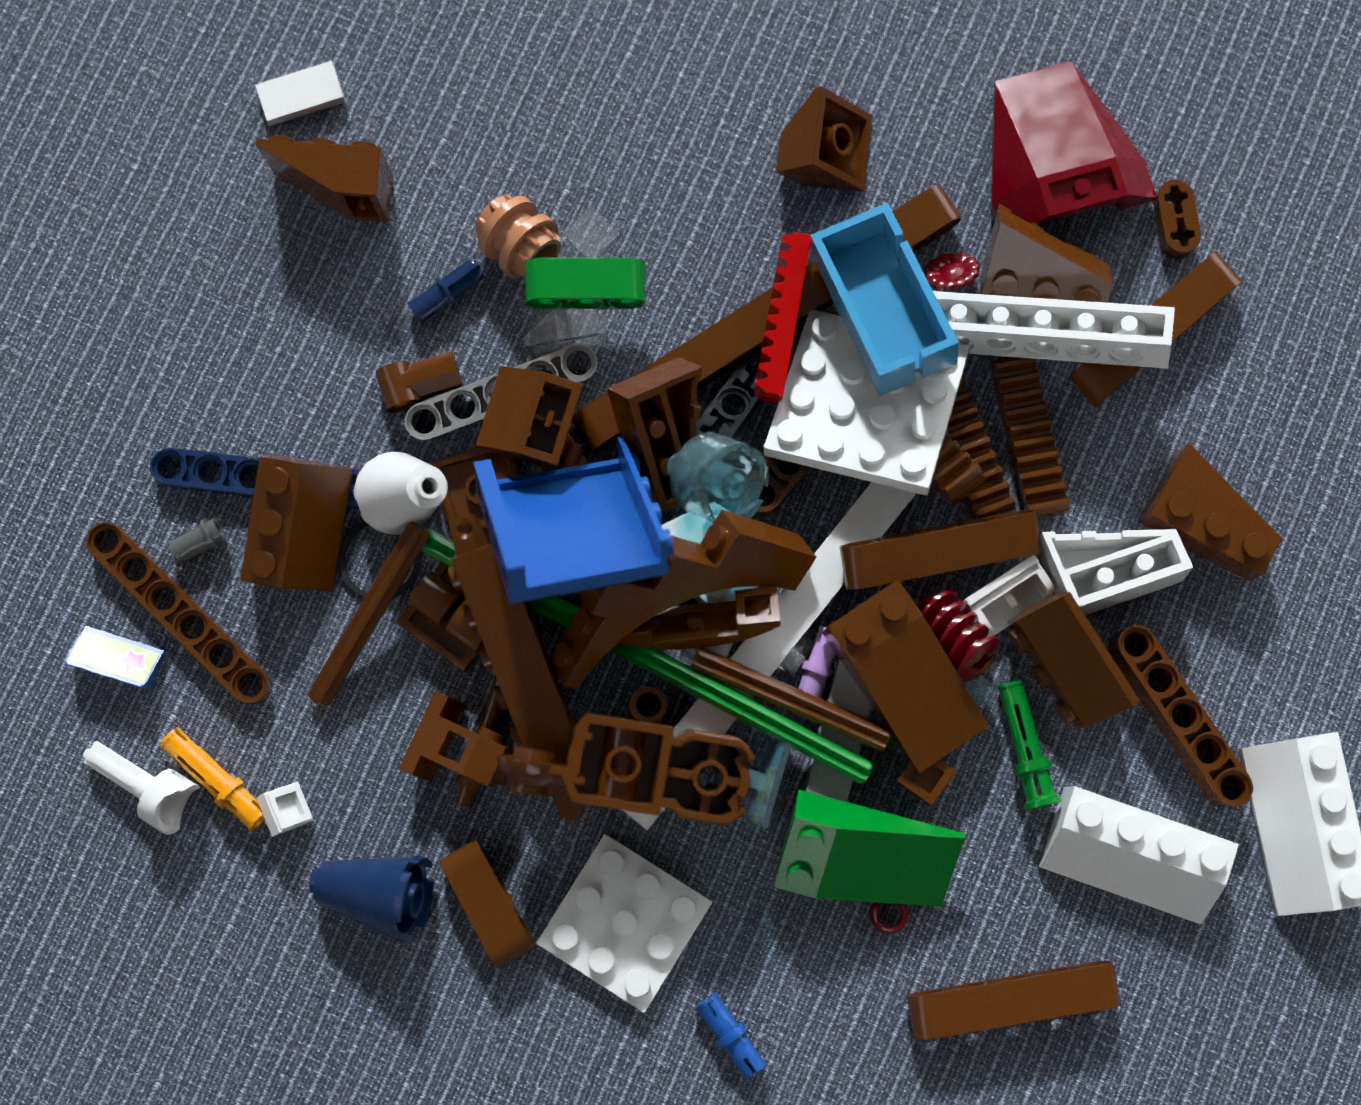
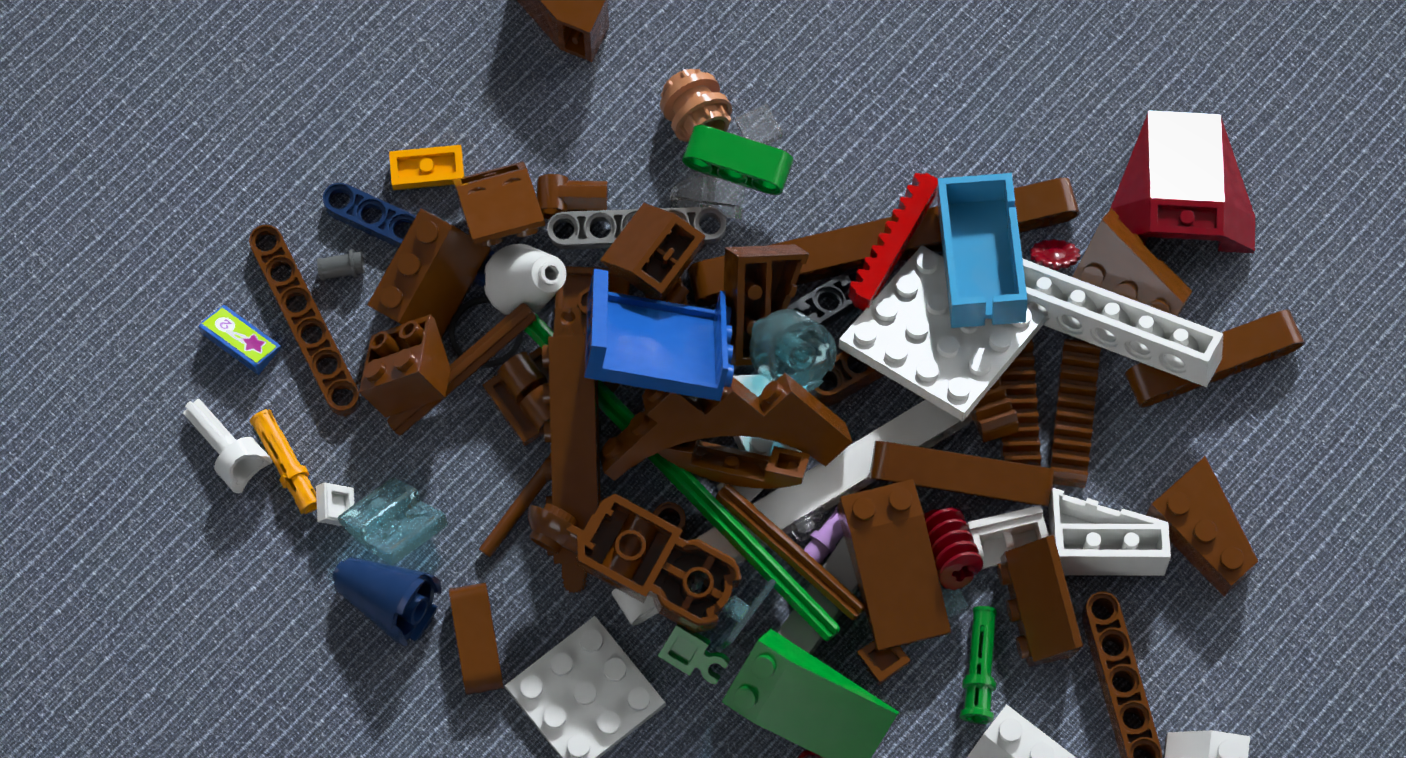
camera: 20 degrees right, 10 degrees down
(251, 399) = (426, 167): none -> light orange plate
(306, 635) = (405, 367): none -> reddish brown slope
(344, 421) = (499, 204): none -> reddish brown slope
(353, 807) = (392, 521): none -> clear light blue slope
(430, 742) = (480, 486): reddish brown tile -> none
(446, 290) = (620, 132): dark blue axle -> none
(719, 841) = (688, 650): none -> green plate
(826, 143) = (984, 115): reddish brown slope -> none
(1185, 217) = (1259, 273): reddish brown beam -> none

